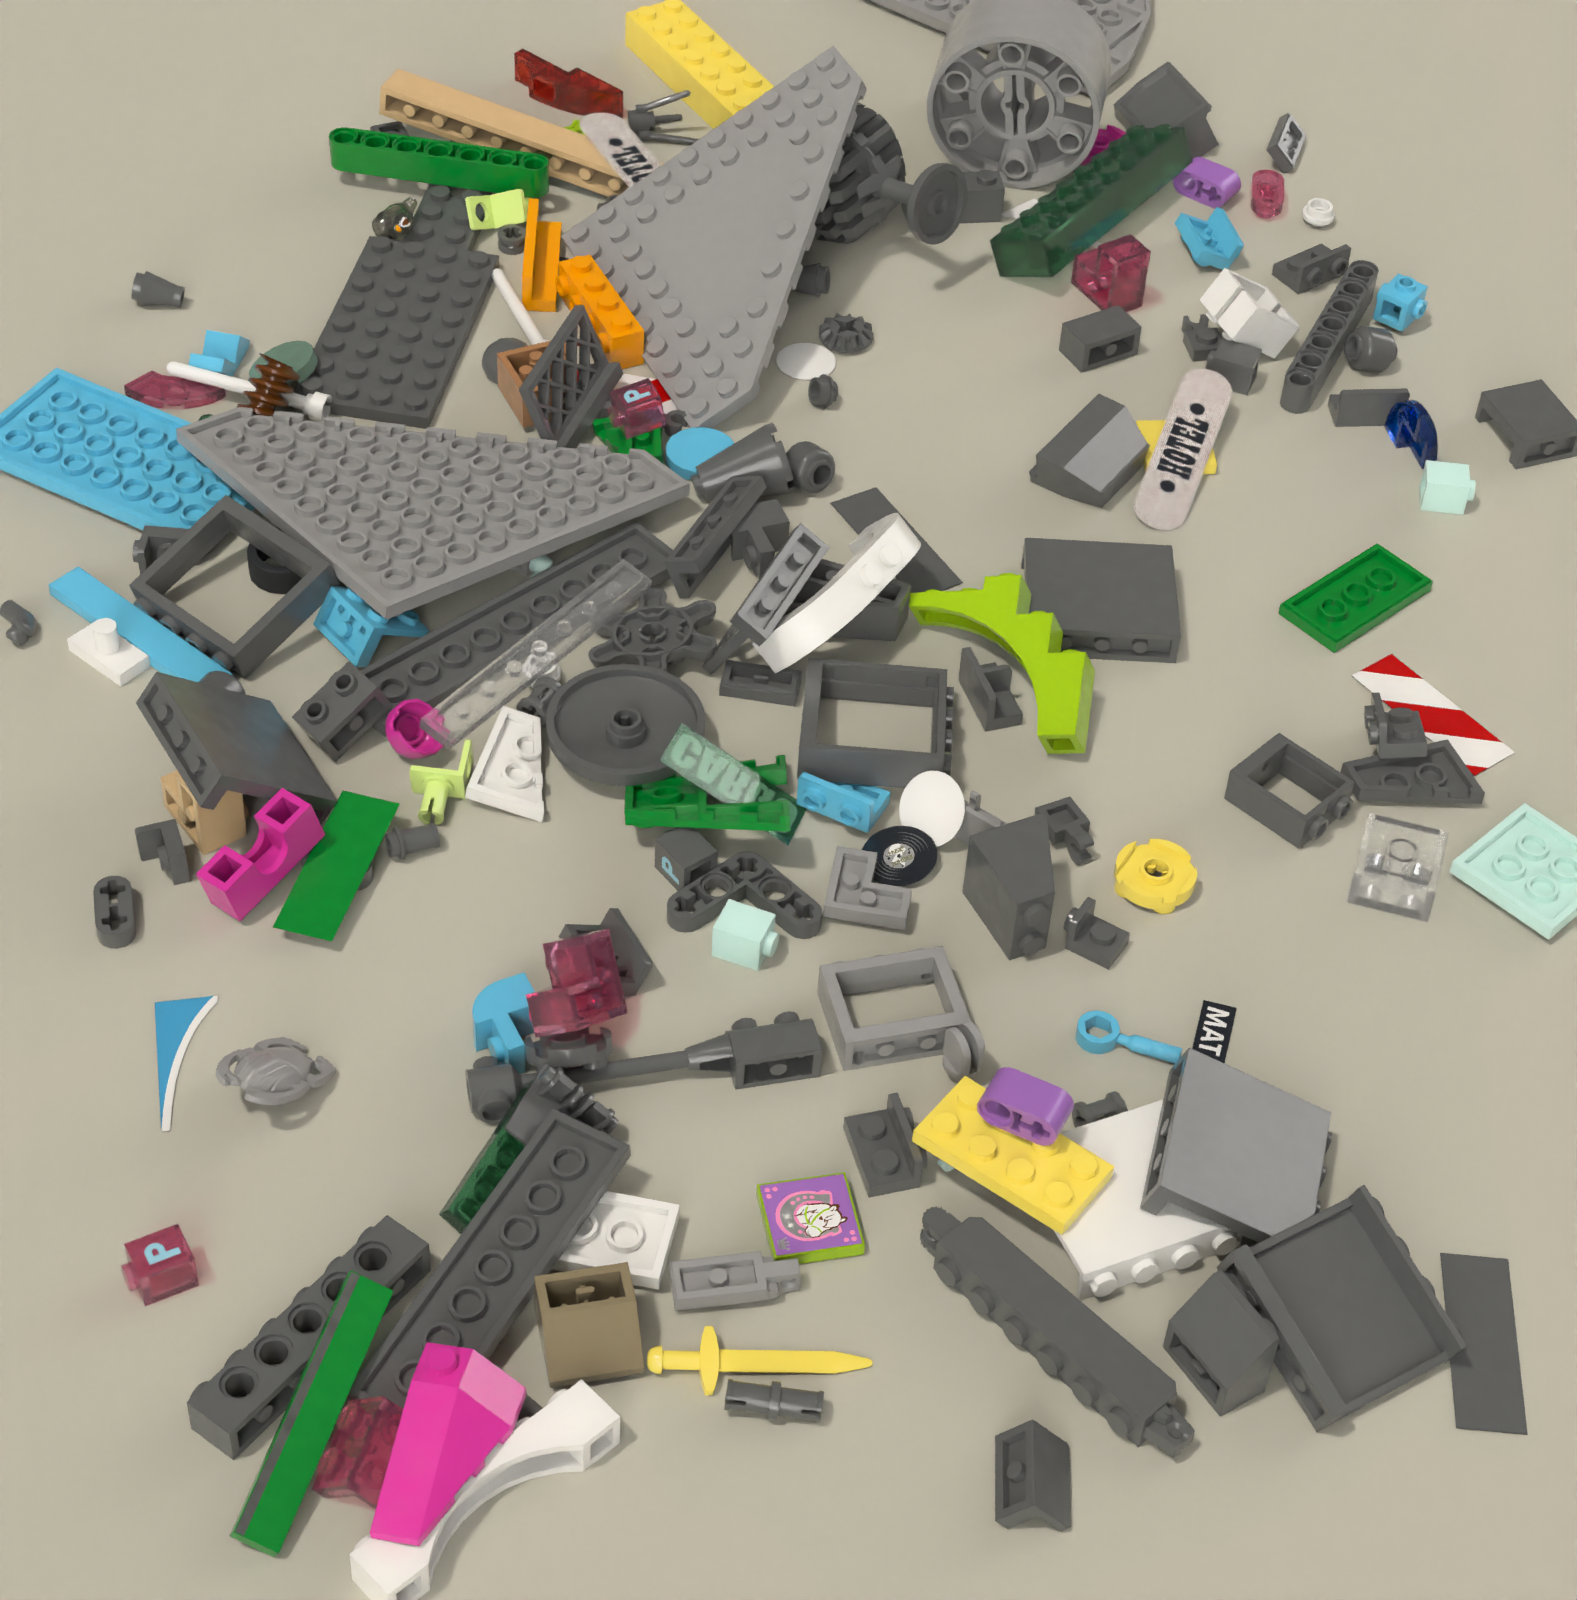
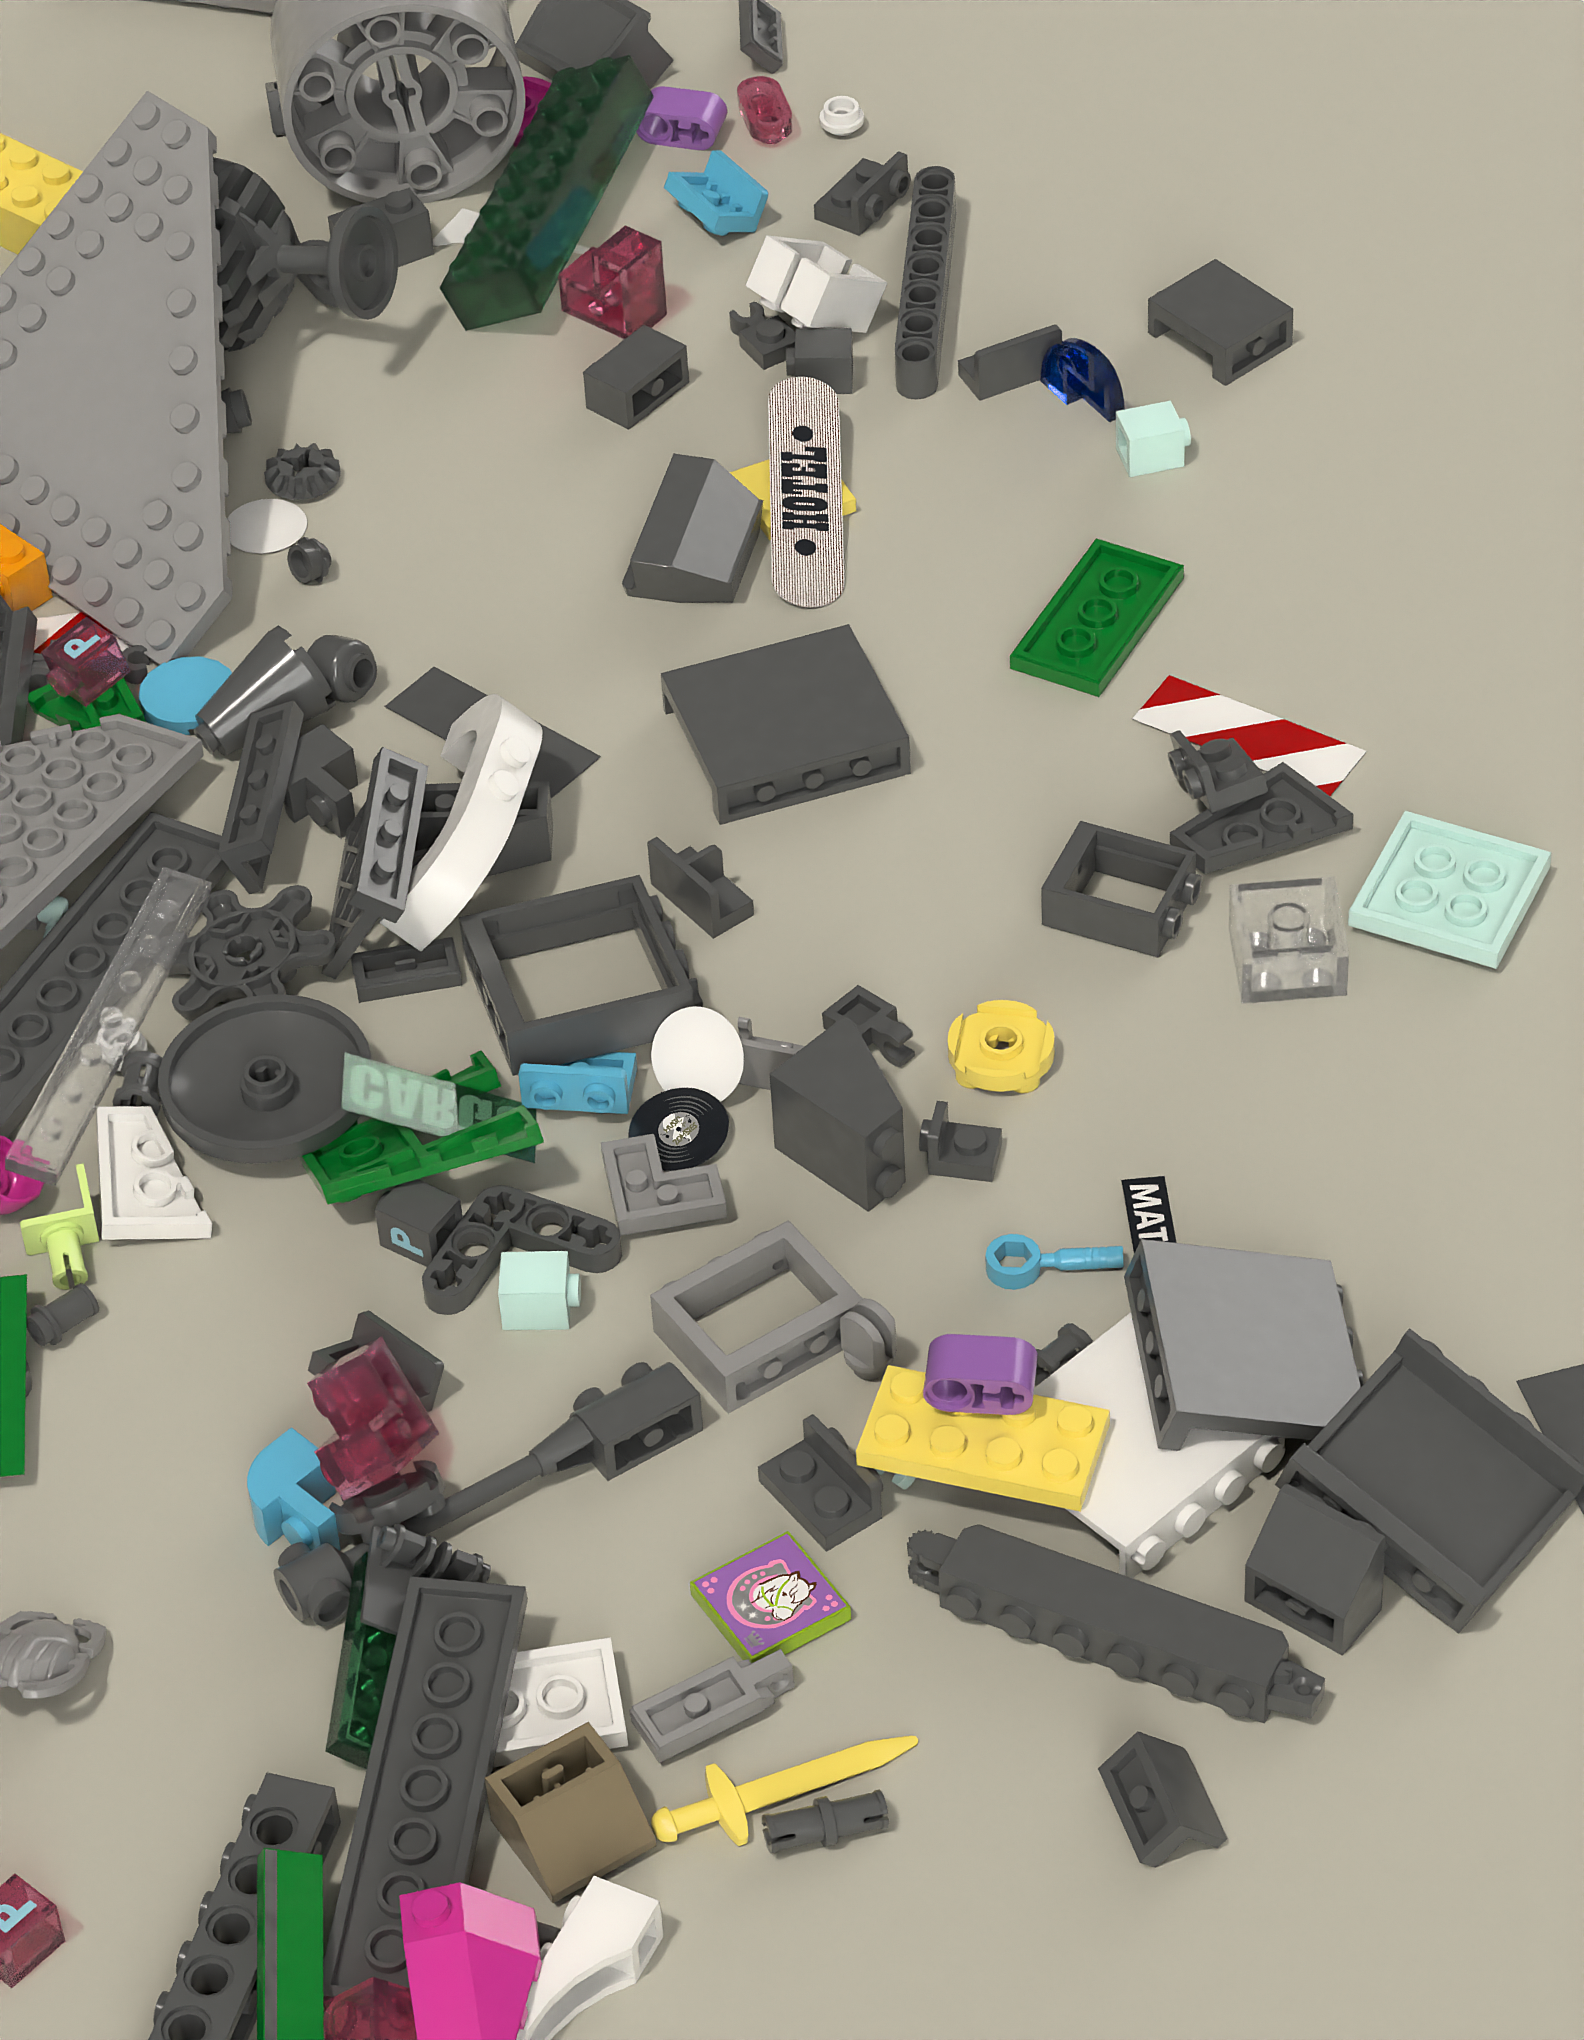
camera: 15 degrees left, 0 degrees up
(1001, 614) = (733, 803): lime arch -> none
(1370, 349) = (984, 283): dark grey head -> none
(1400, 302) = (997, 208): medium azure brick -> none

